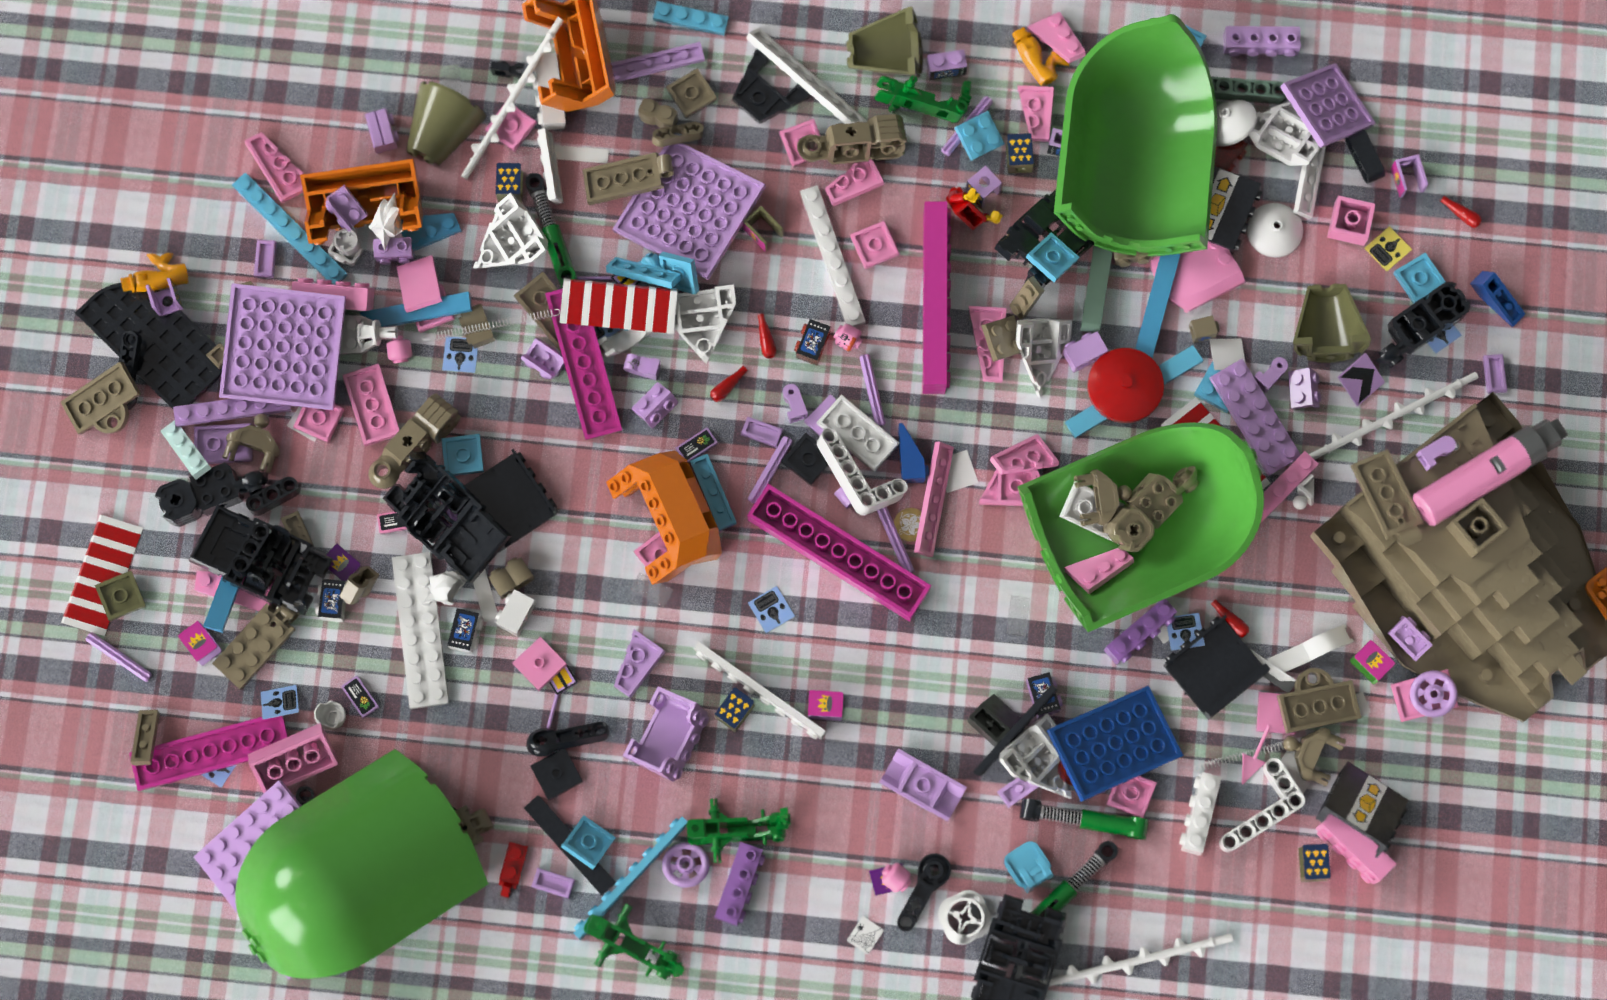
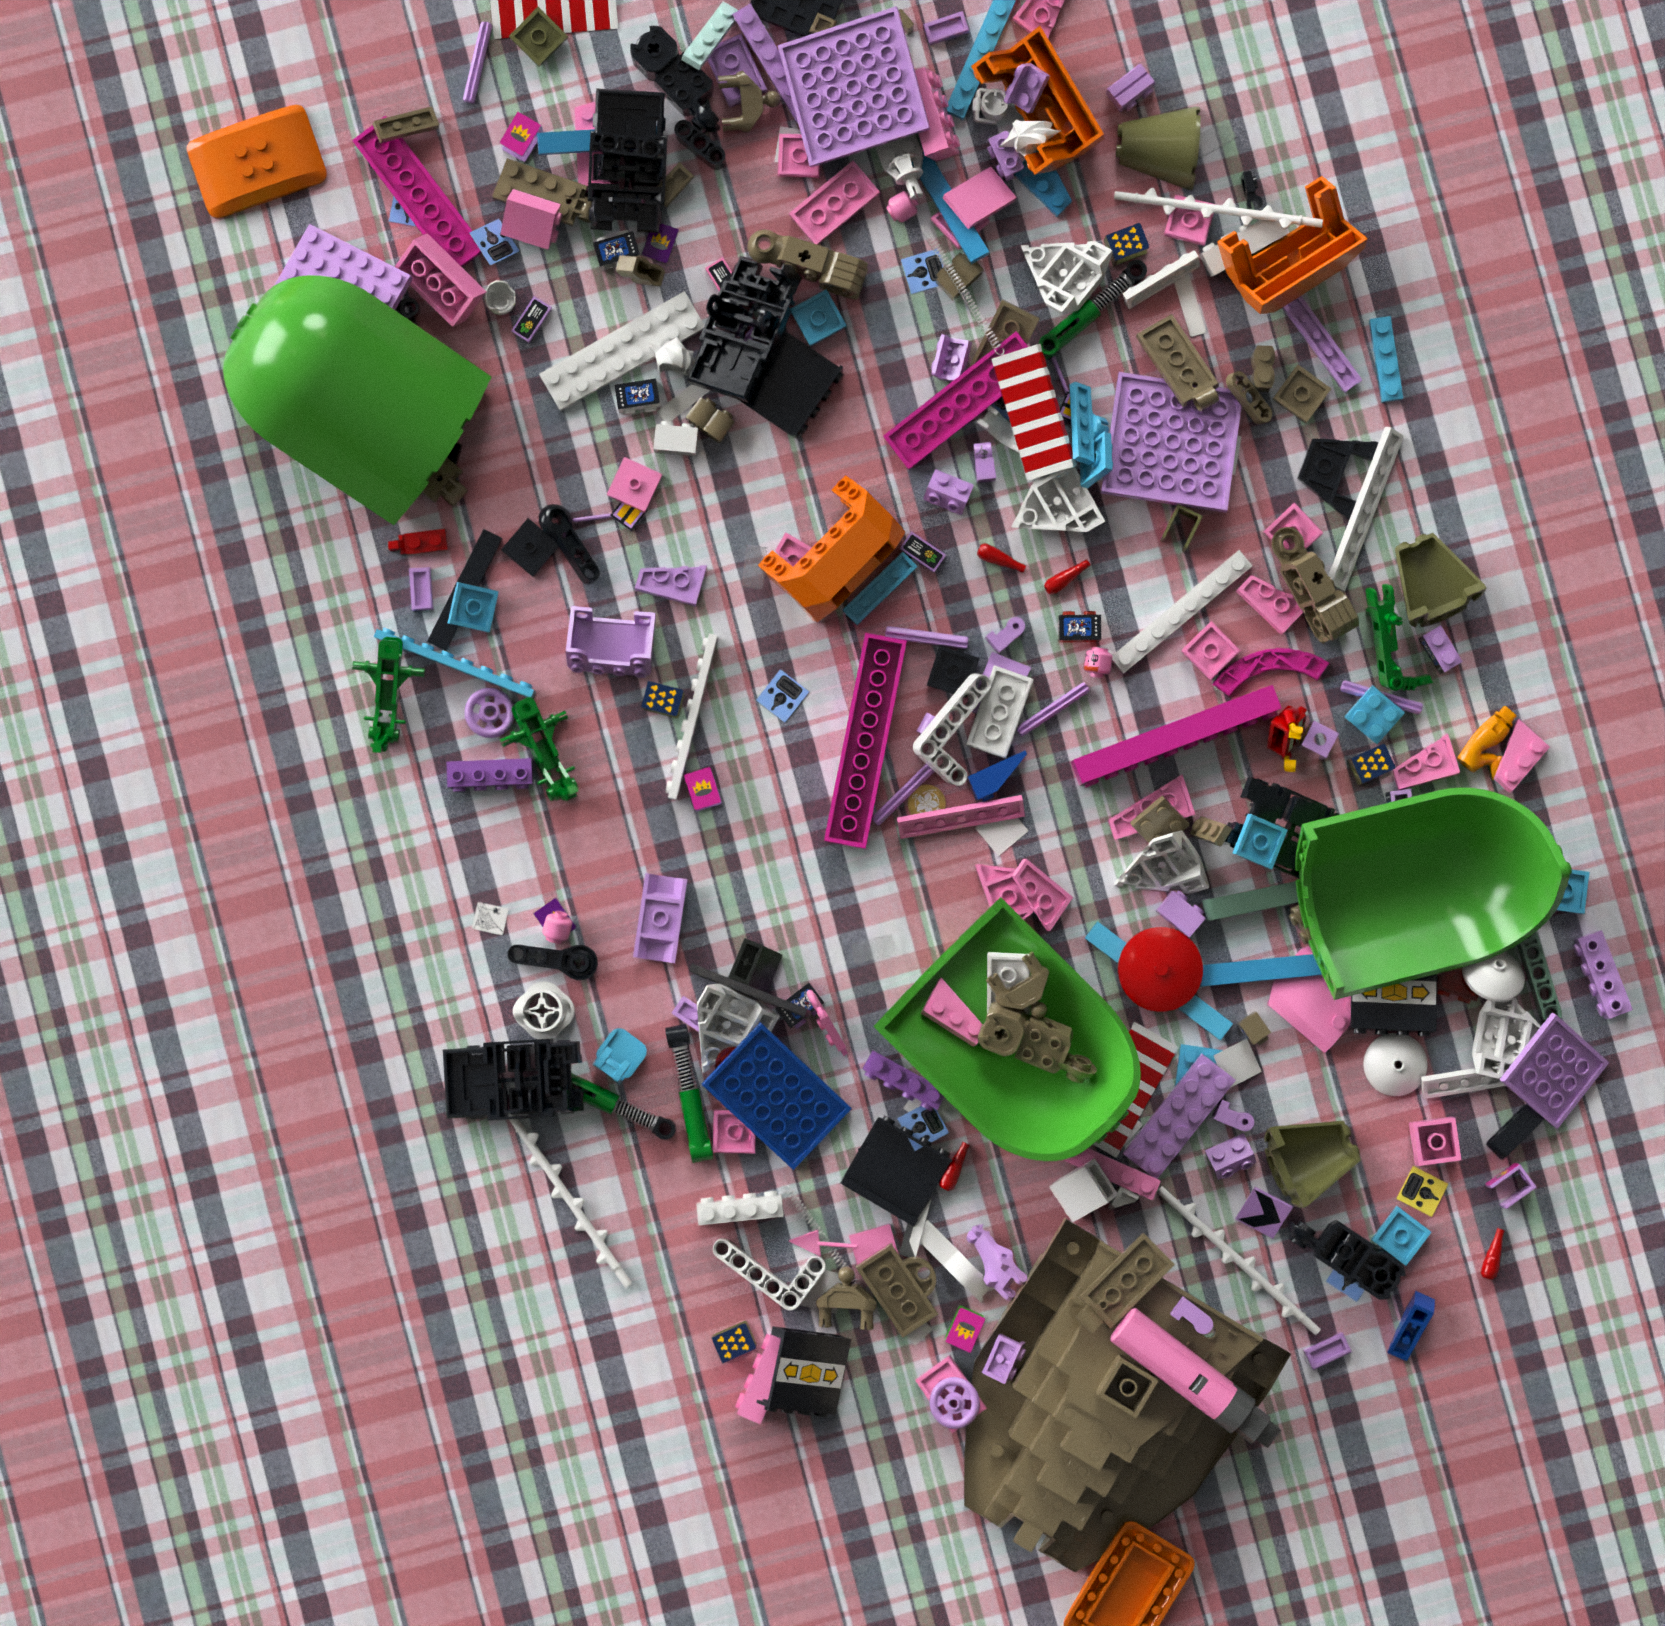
camera: 70 degrees right, 10 degrees up
(117, 882) = (256, 161): none -> orange wedge
(275, 660) = (531, 219): none -> bright pink brick
(762, 432) = (963, 613): lavender tile -> none
(901, 201) = (1267, 661): none -> dark pink tile
(1068, 676) = (825, 1023): none -> bright pink plate
(1290, 517) = (1083, 1190): none -> white brick
(1325, 611) = (997, 1261): none -> lavender animal

